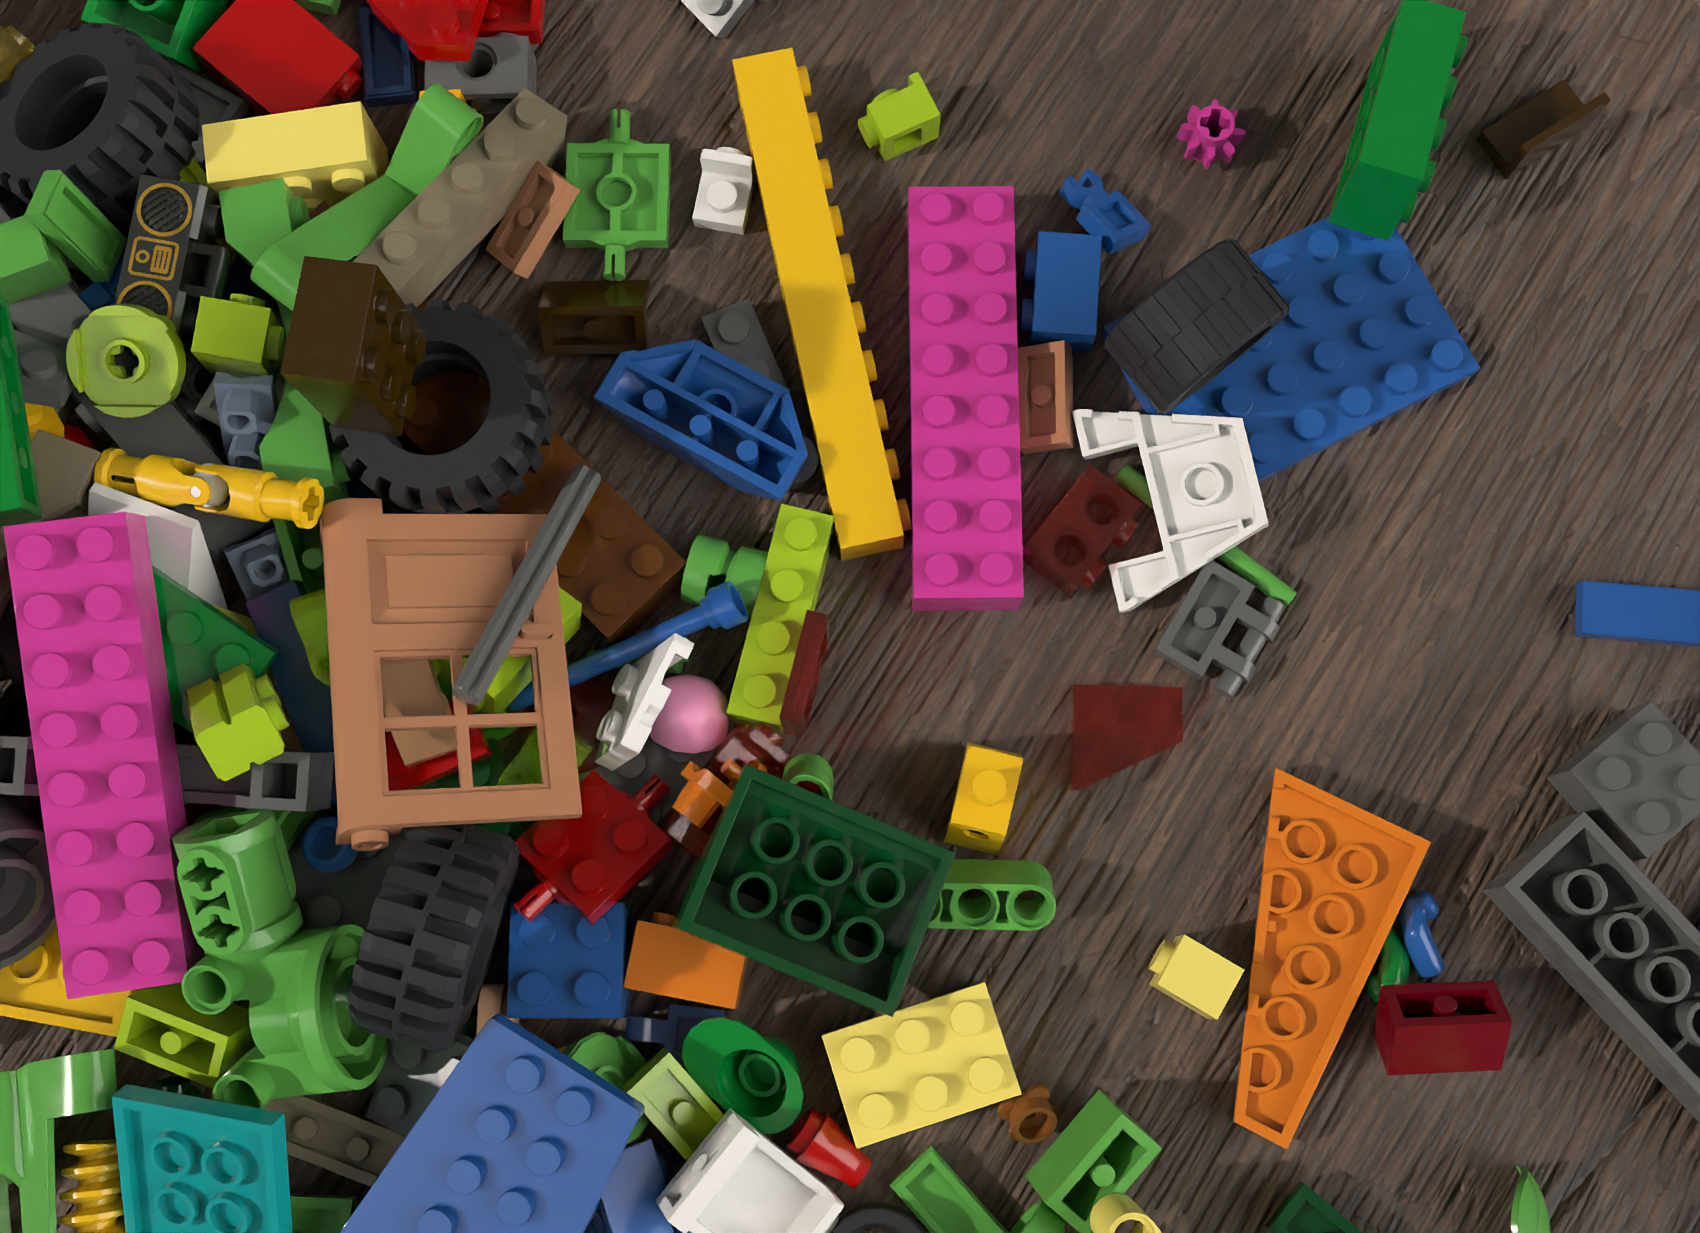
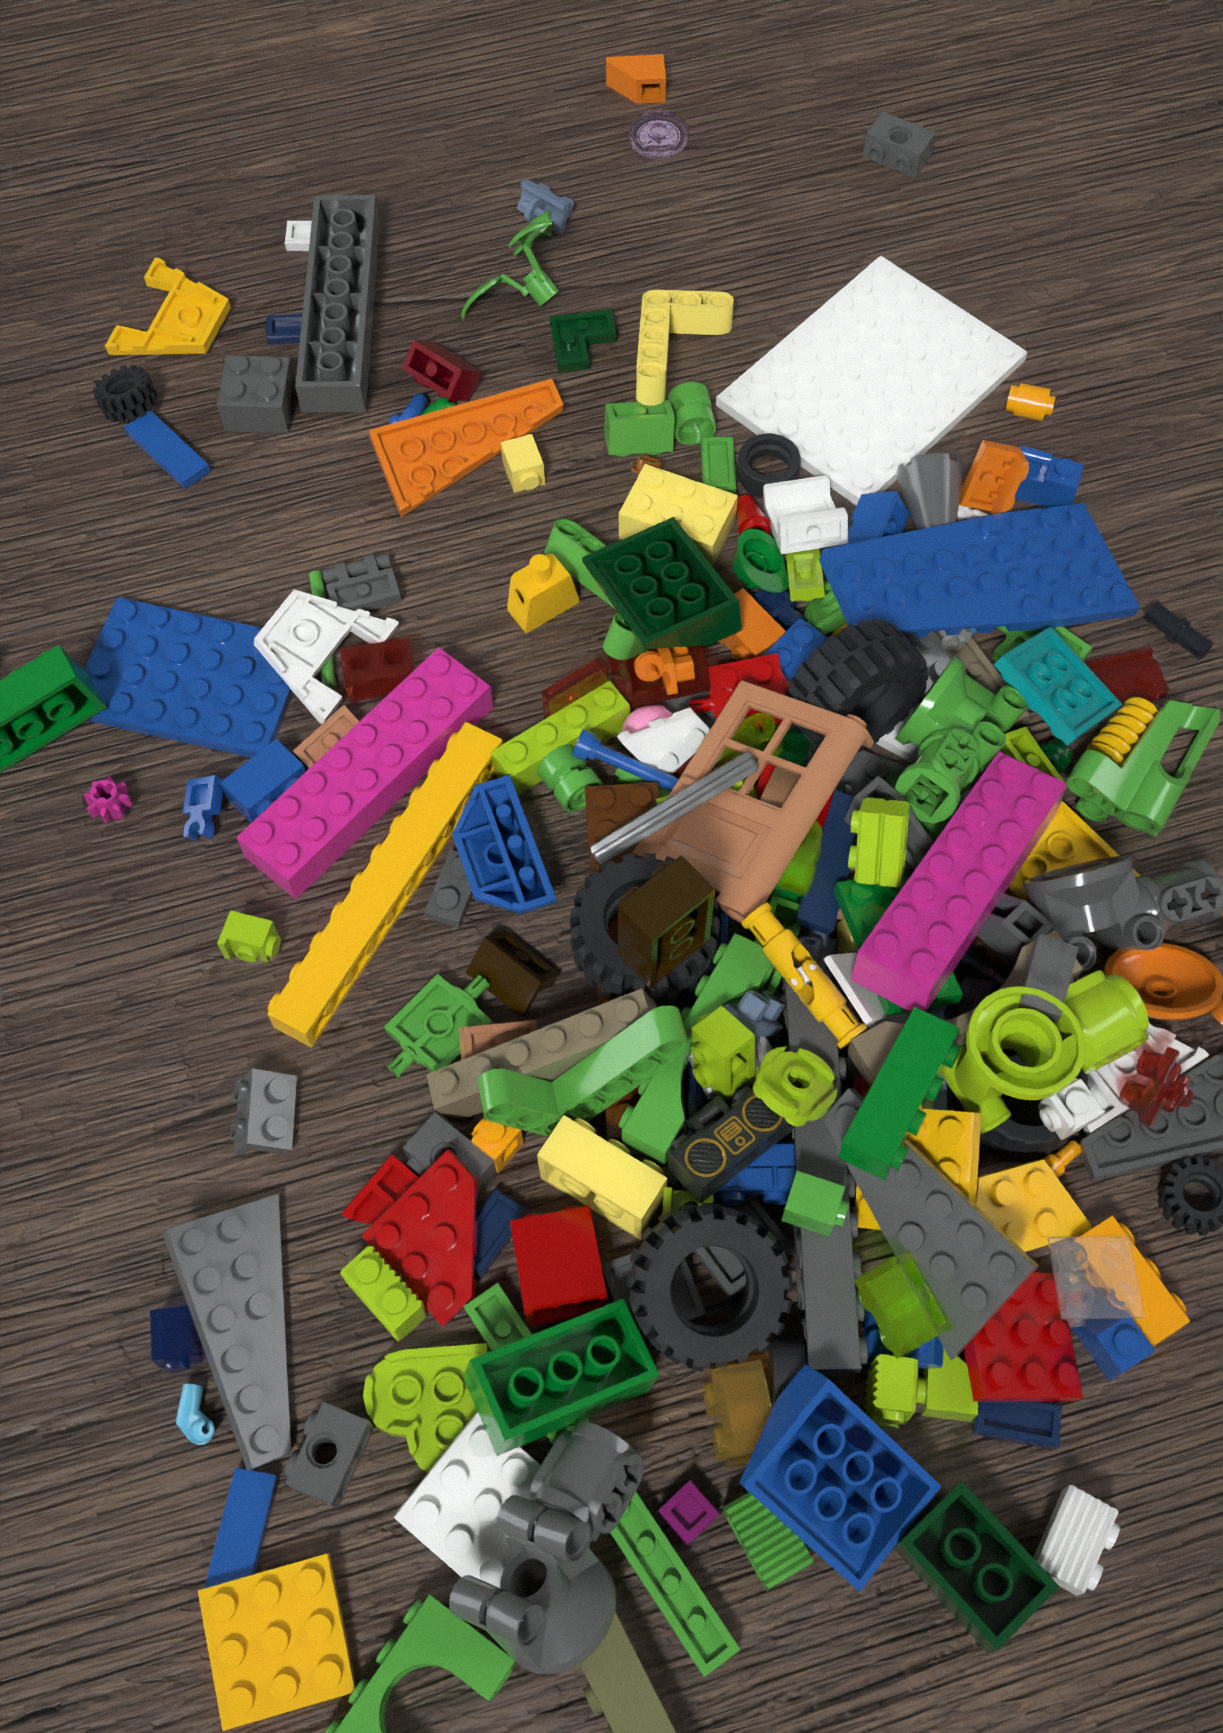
camera: 140 degrees left, 15 degrees down
(76, 226) = (765, 1198): bright green tile -> none
(724, 190) = (380, 982): white bracket -> none
(1120, 728) = (450, 582): clear red wing -> none
(1196, 325) = (232, 677): black tyre -> none

